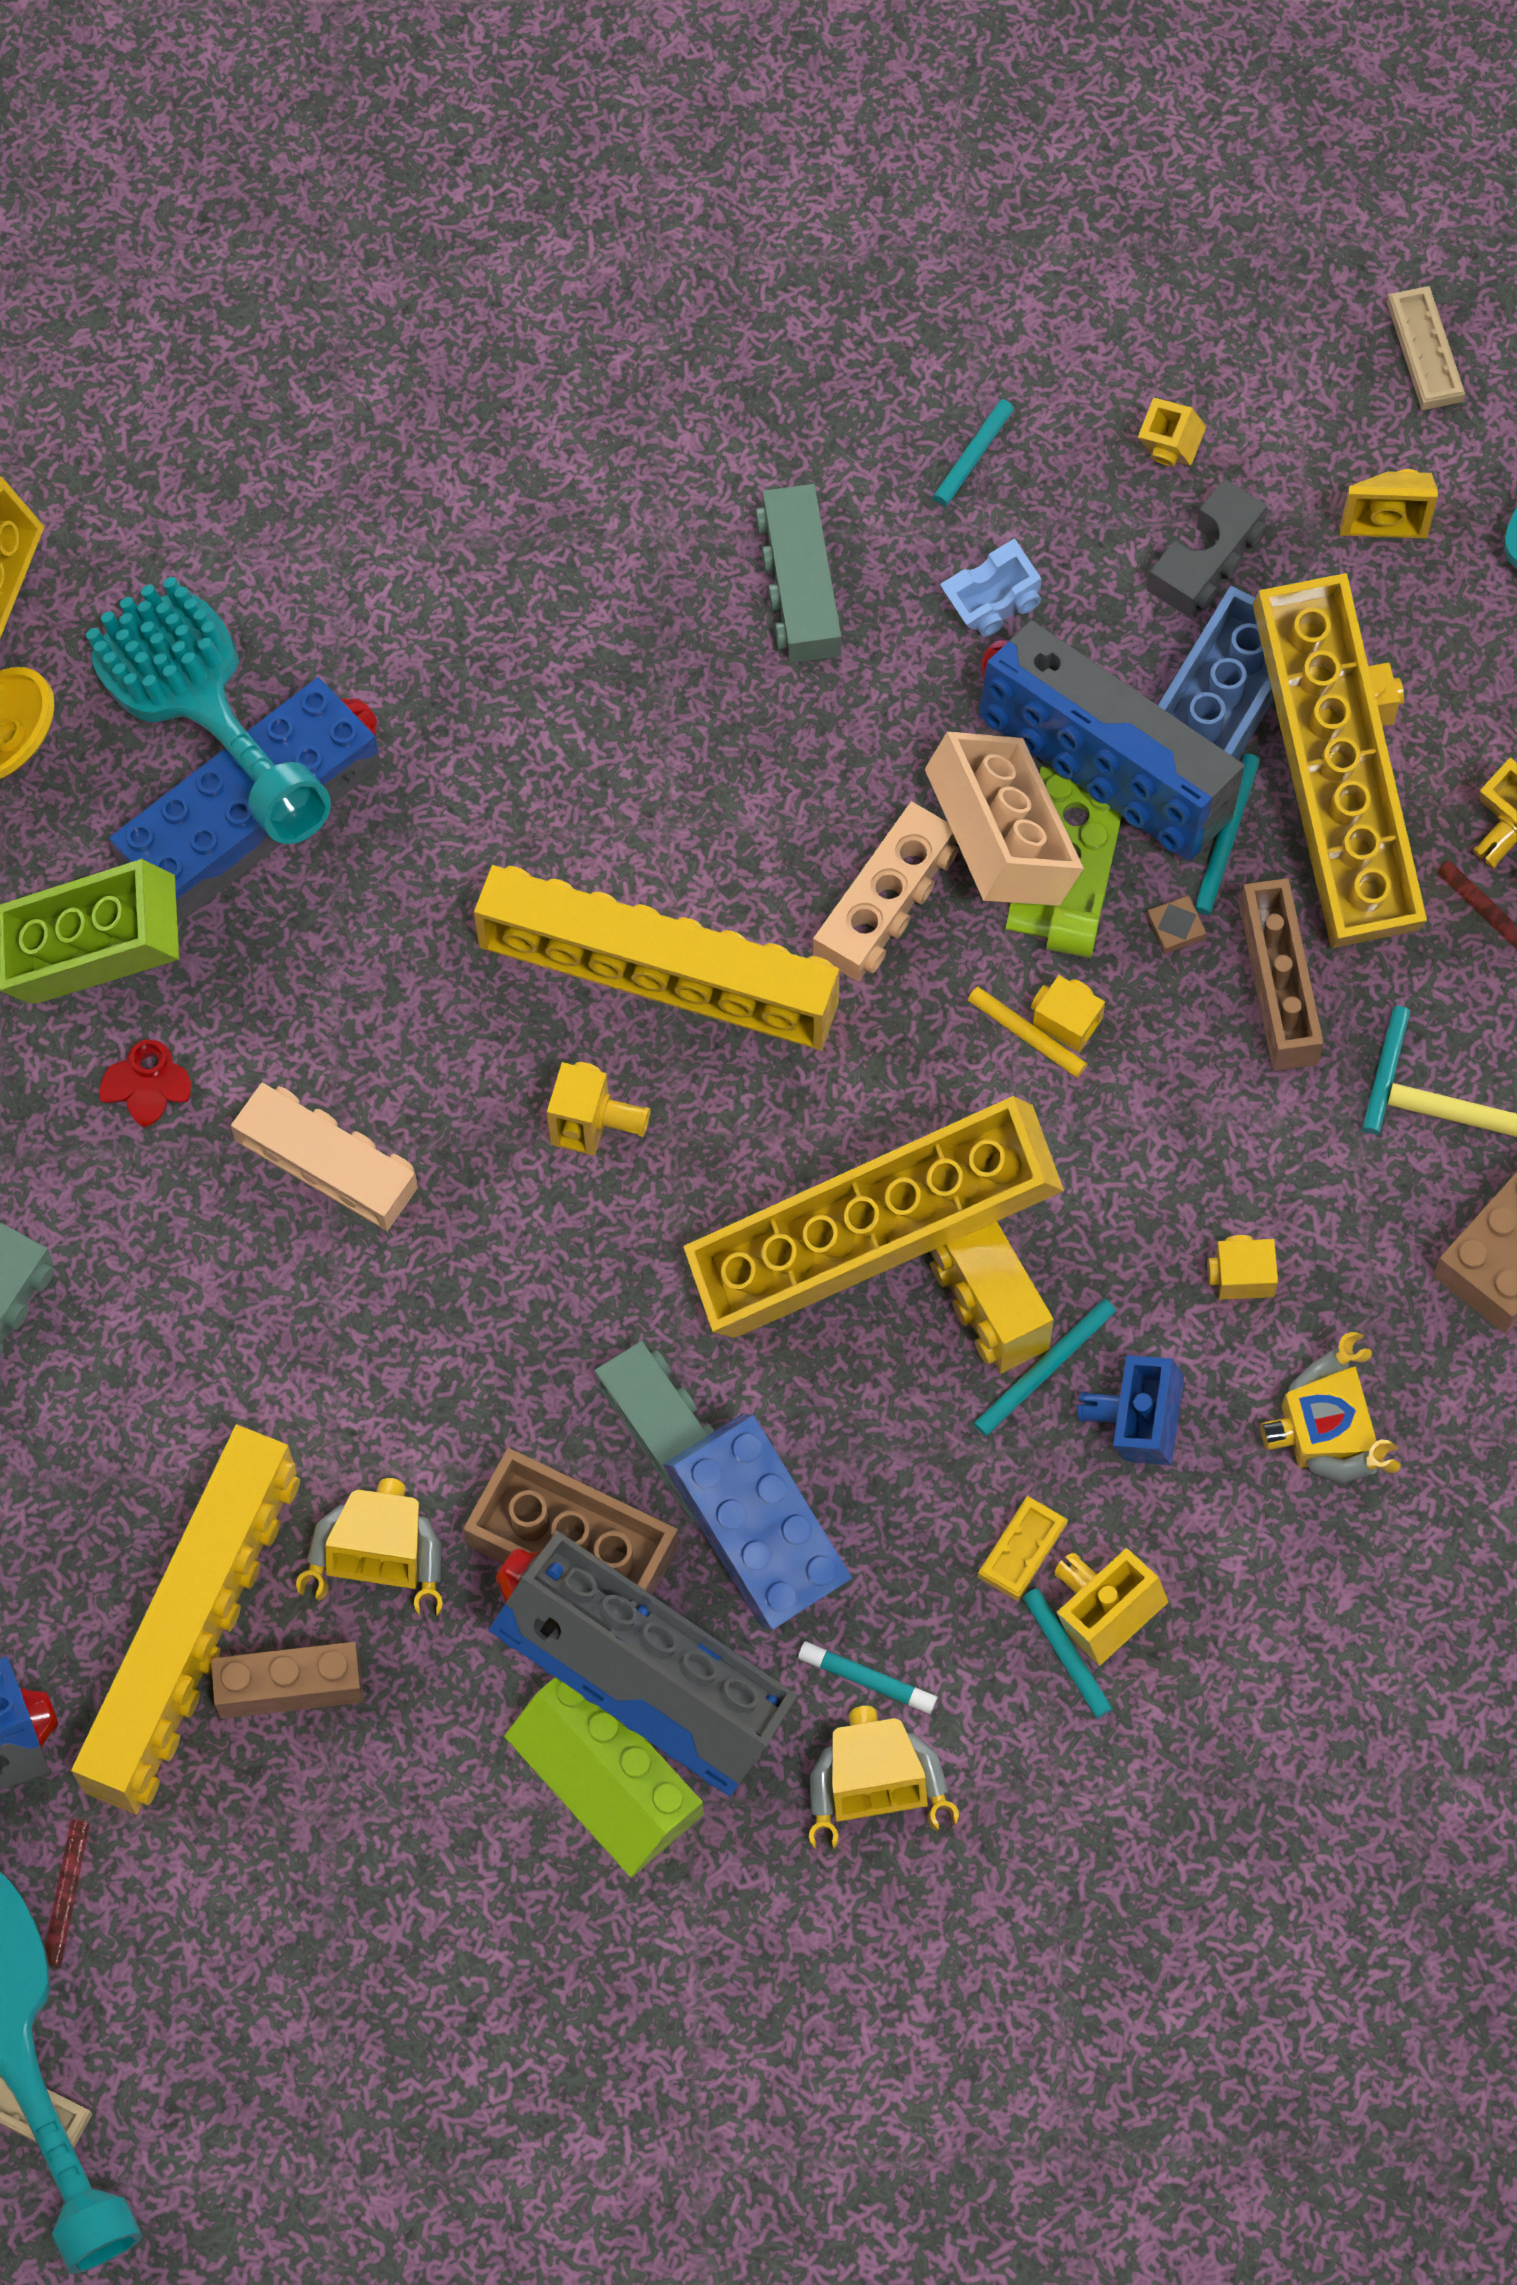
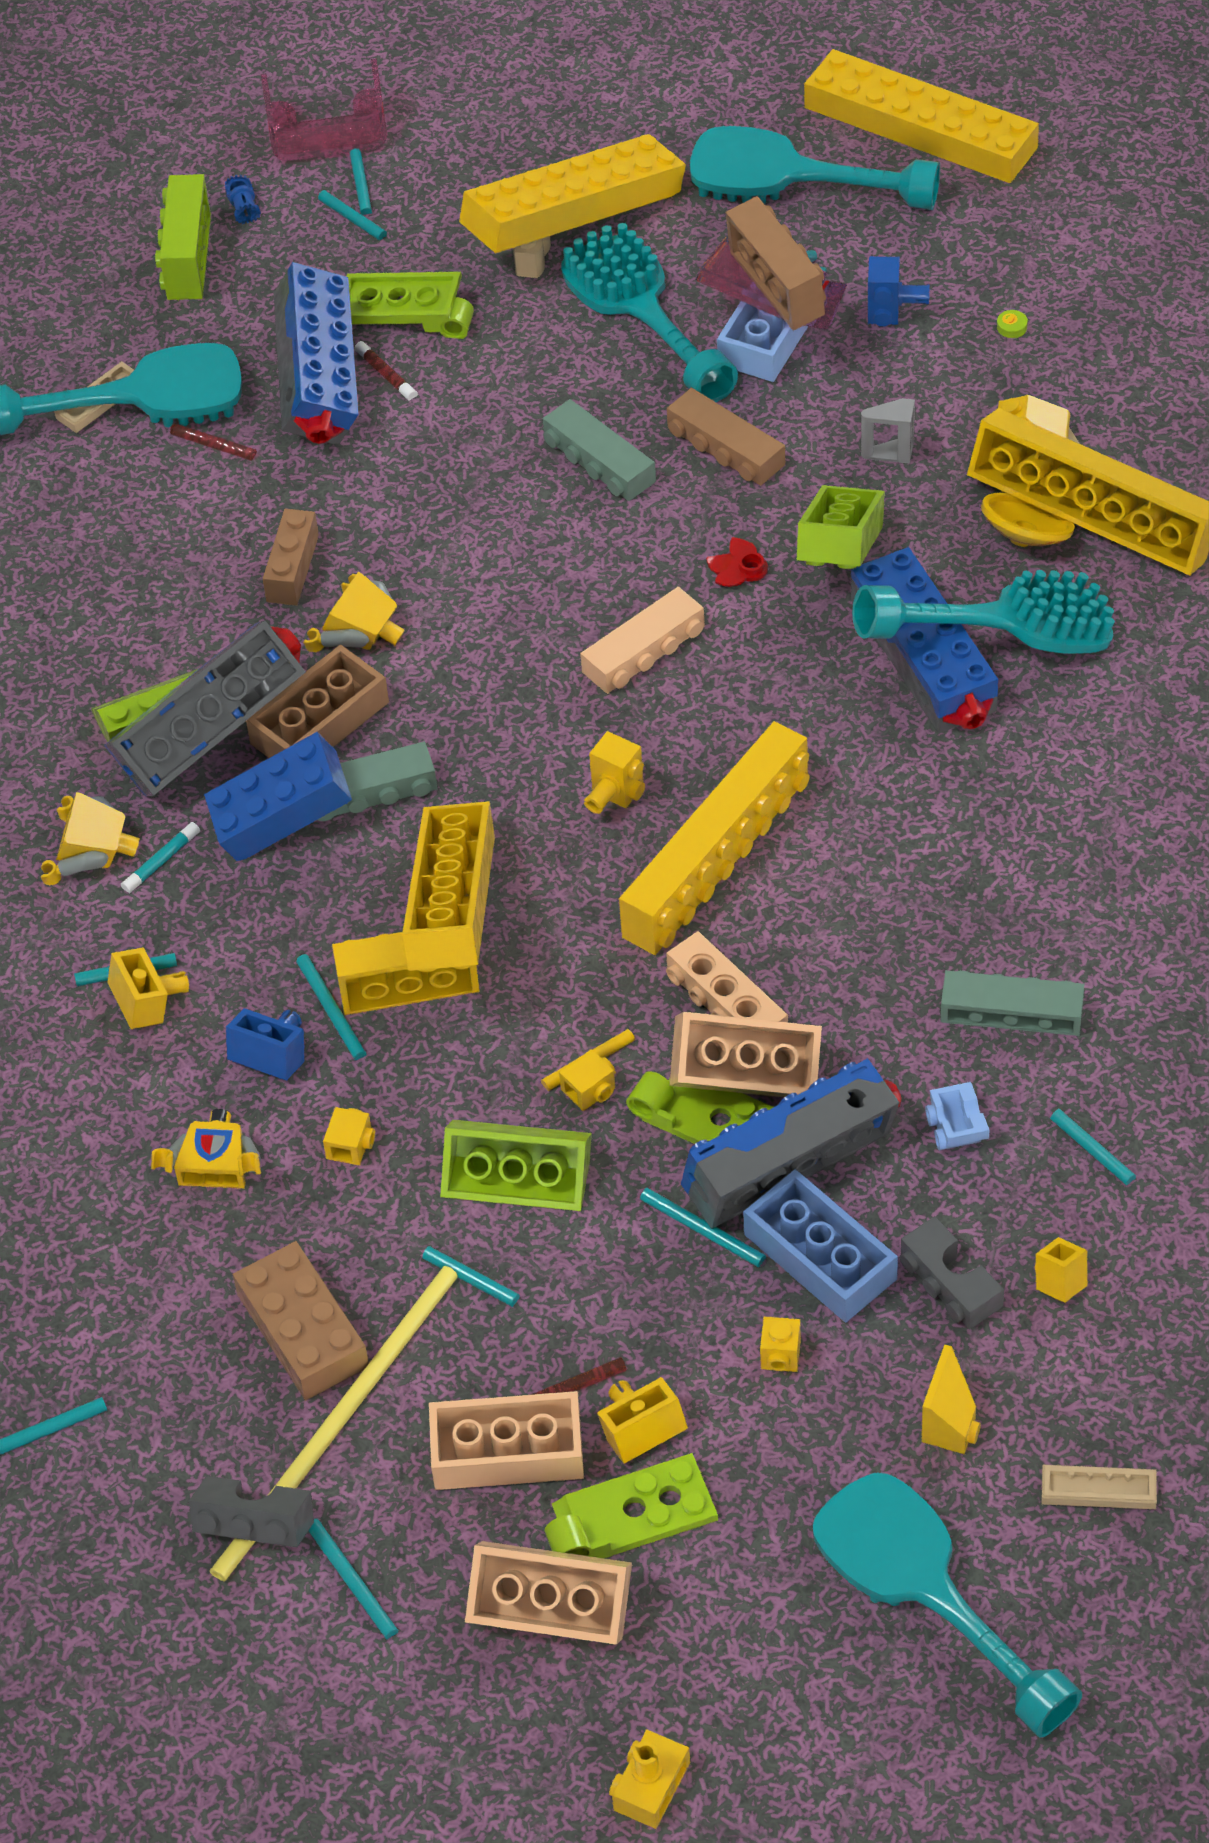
camera: 110 degrees right, 15 degrees down
(186, 1621) = (349, 508): yellow brick -> none
(1022, 1548) = (206, 958): yellow plate -> none
(1176, 924) = (638, 1173): medium nougat tile -> none
(1216, 1059) = (515, 1164): none -> lime slope
(1281, 974) = (564, 1214): medium nougat brick -> none
(1339, 761) = (715, 1278): yellow brick -> none

